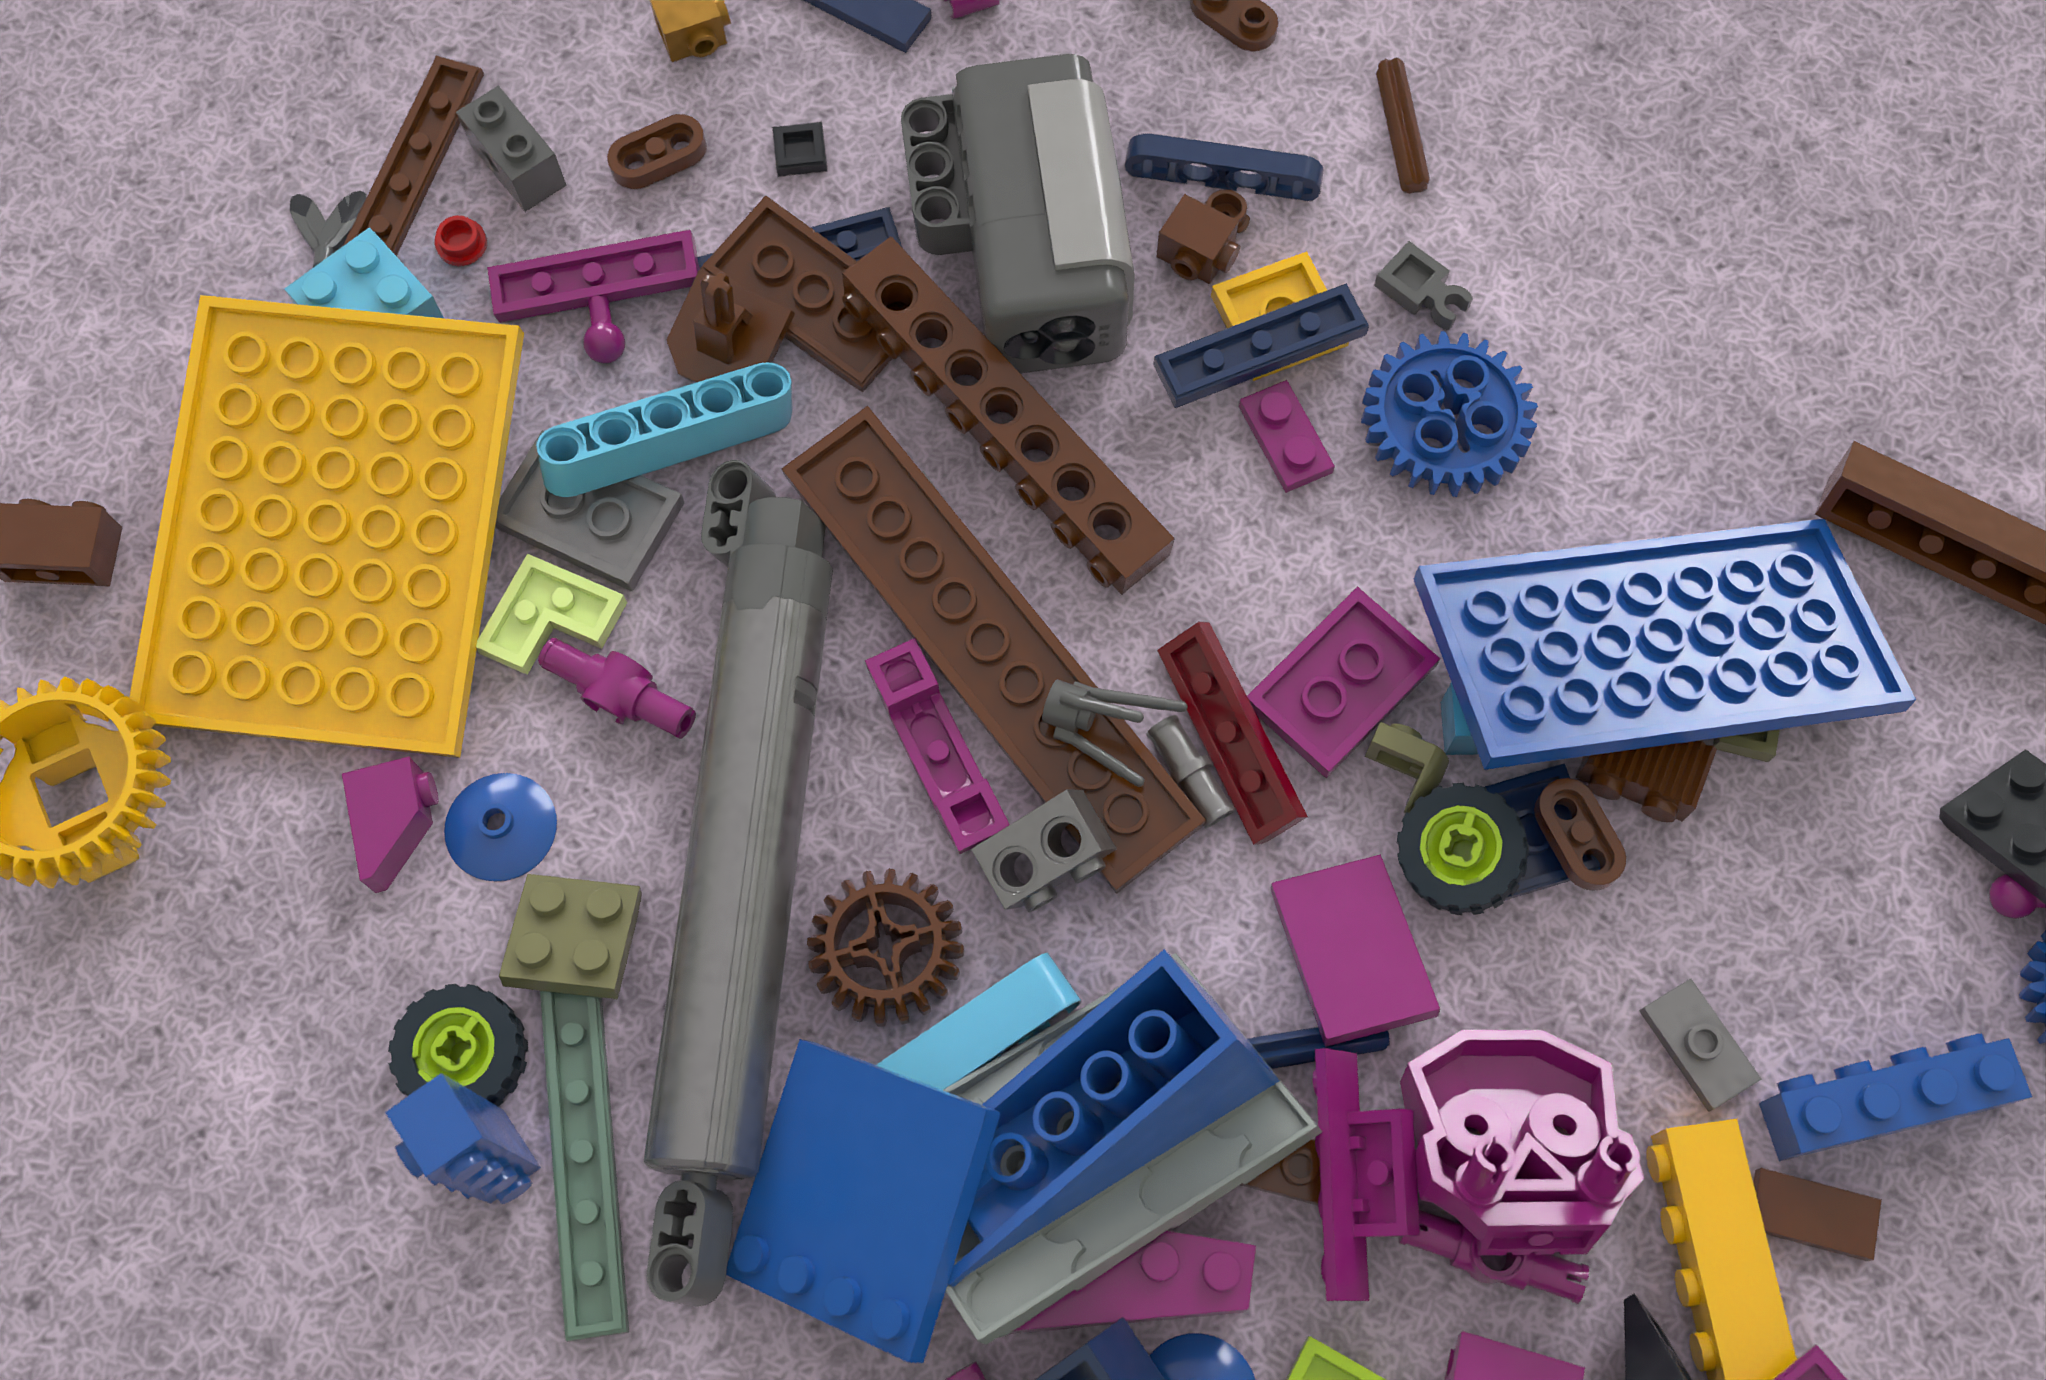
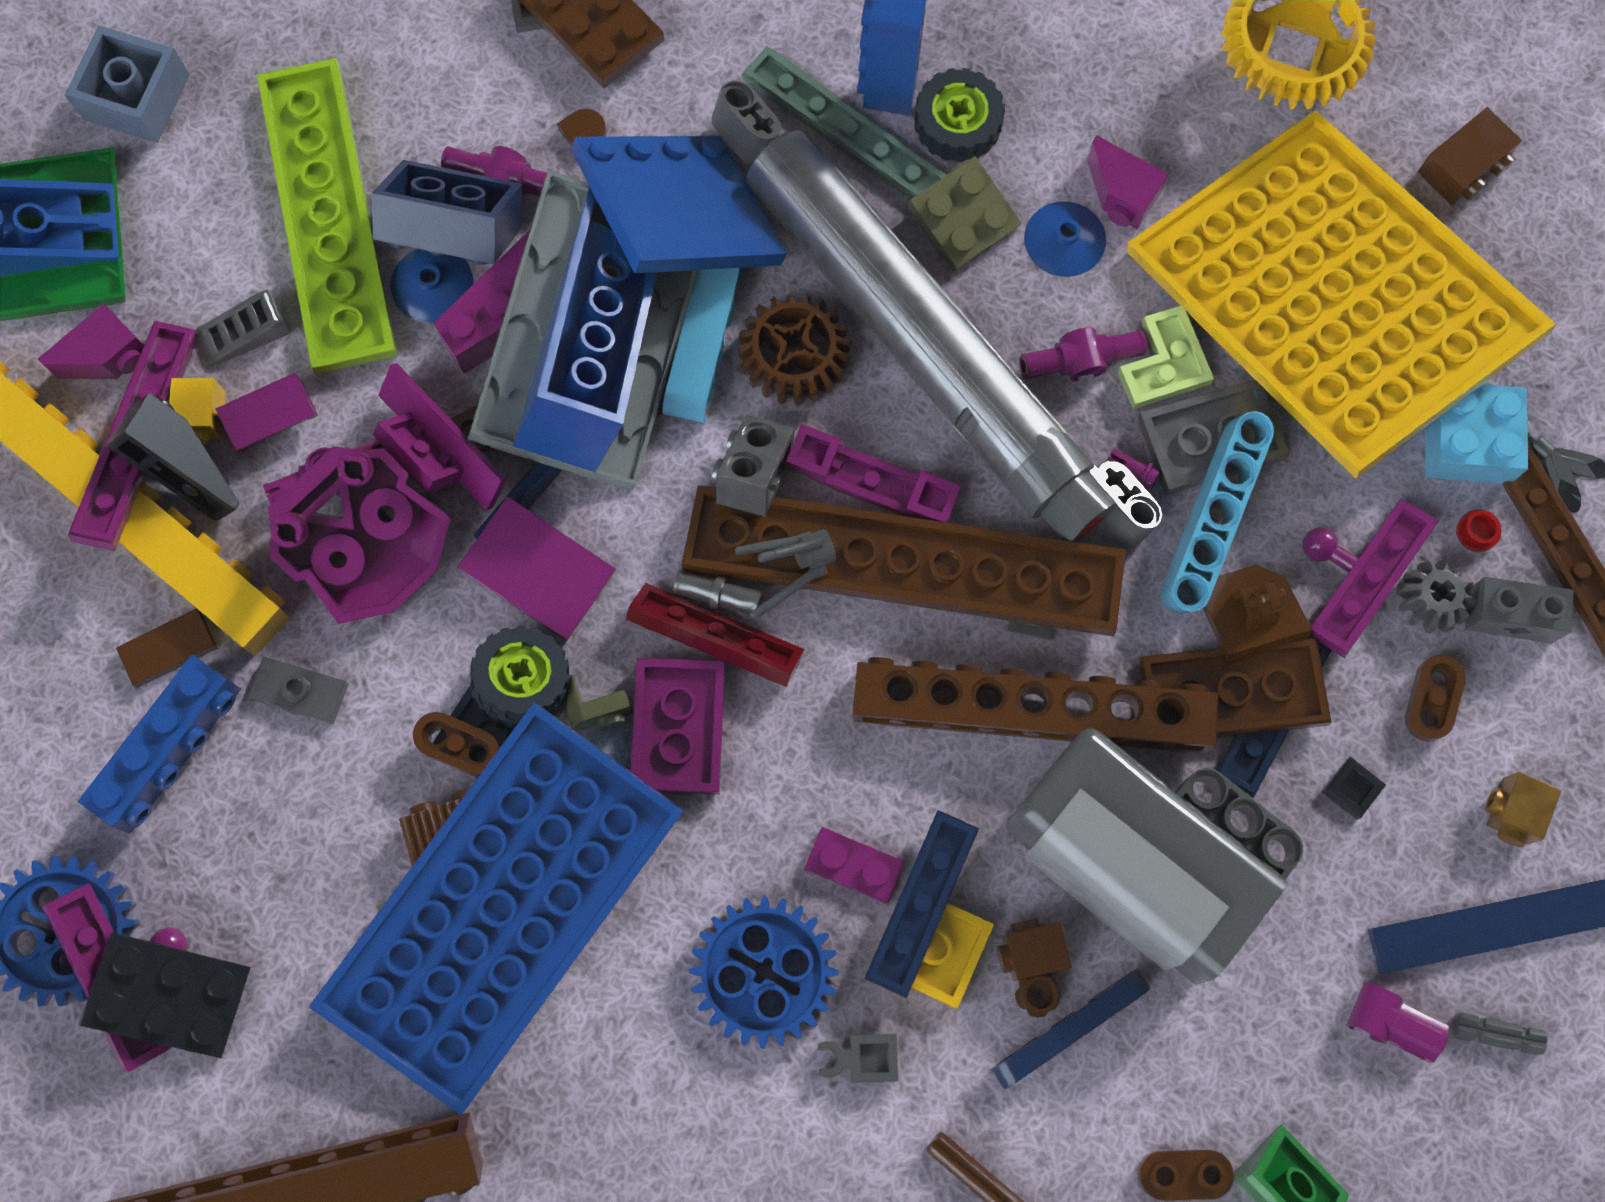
camera: 135 degrees right, 5 degrees up
(562, 217) = (1423, 583): none -> flat silver gear
(687, 530) = (1144, 474): none -> magenta pin

